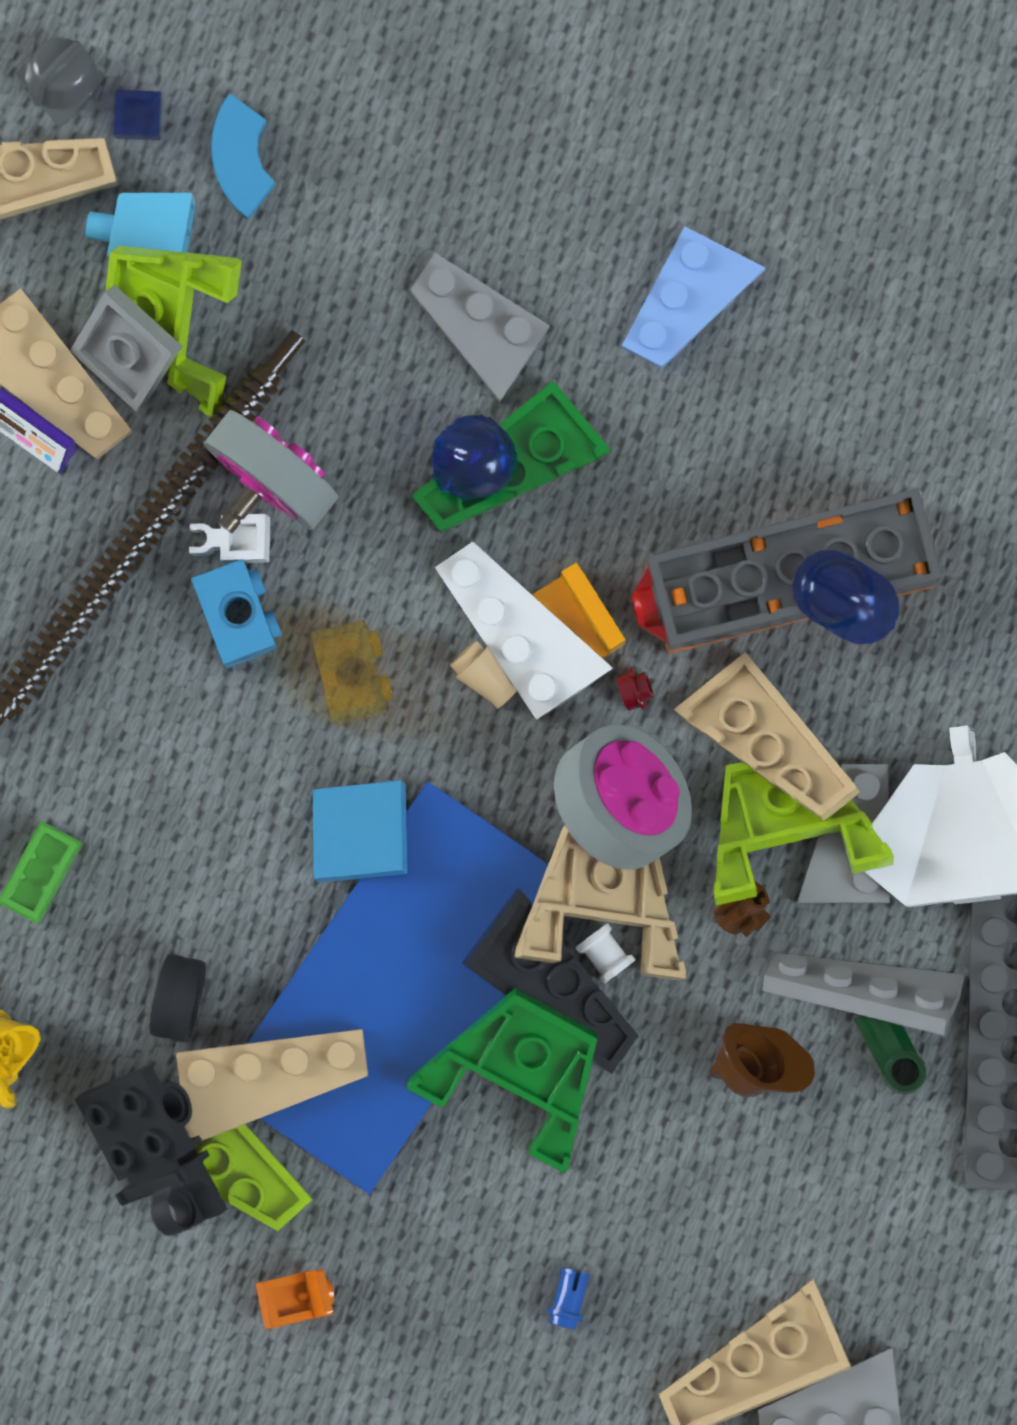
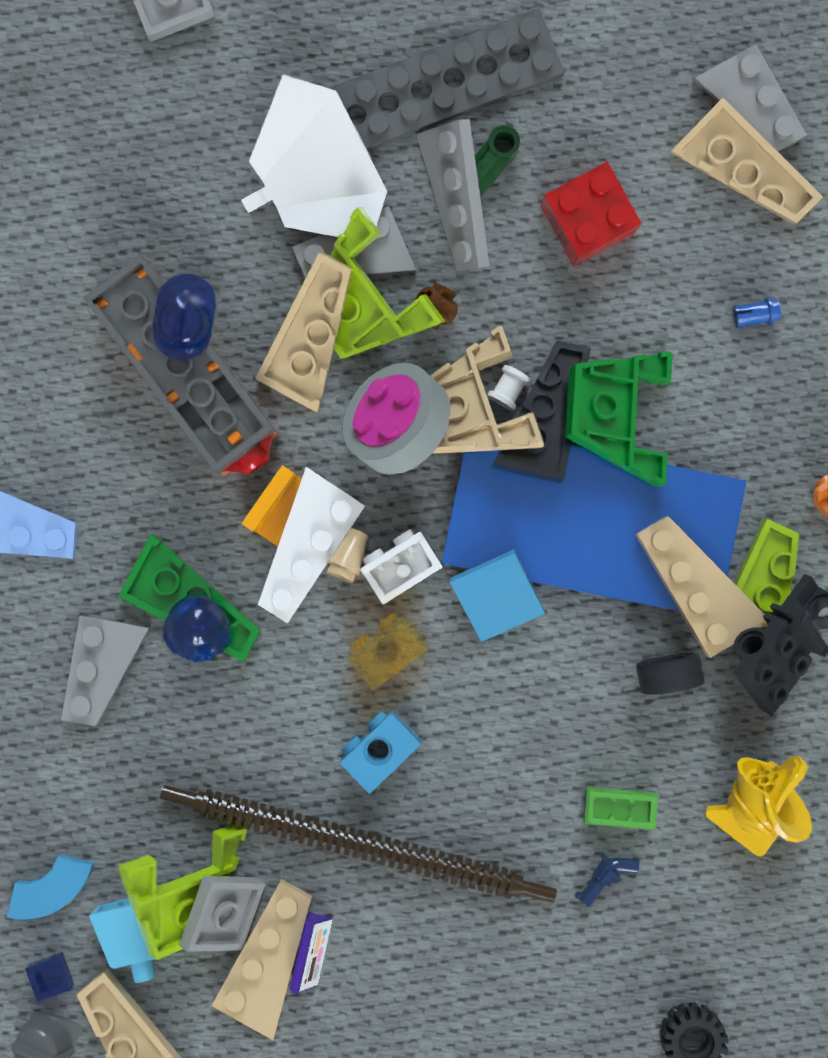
camera: 120 degrees left, 5 degrees up
(247, 542) = (326, 772): white plate -> none
(269, 471) = (268, 772): light grey wheel -> none
(444, 731) = (401, 566): none -> white bracket
(635, 689) = (314, 445): dark red plate -> none
(762, 1061) = (538, 245): reddish brown piece -> none
(775, 1142) = (590, 213): none -> red brick

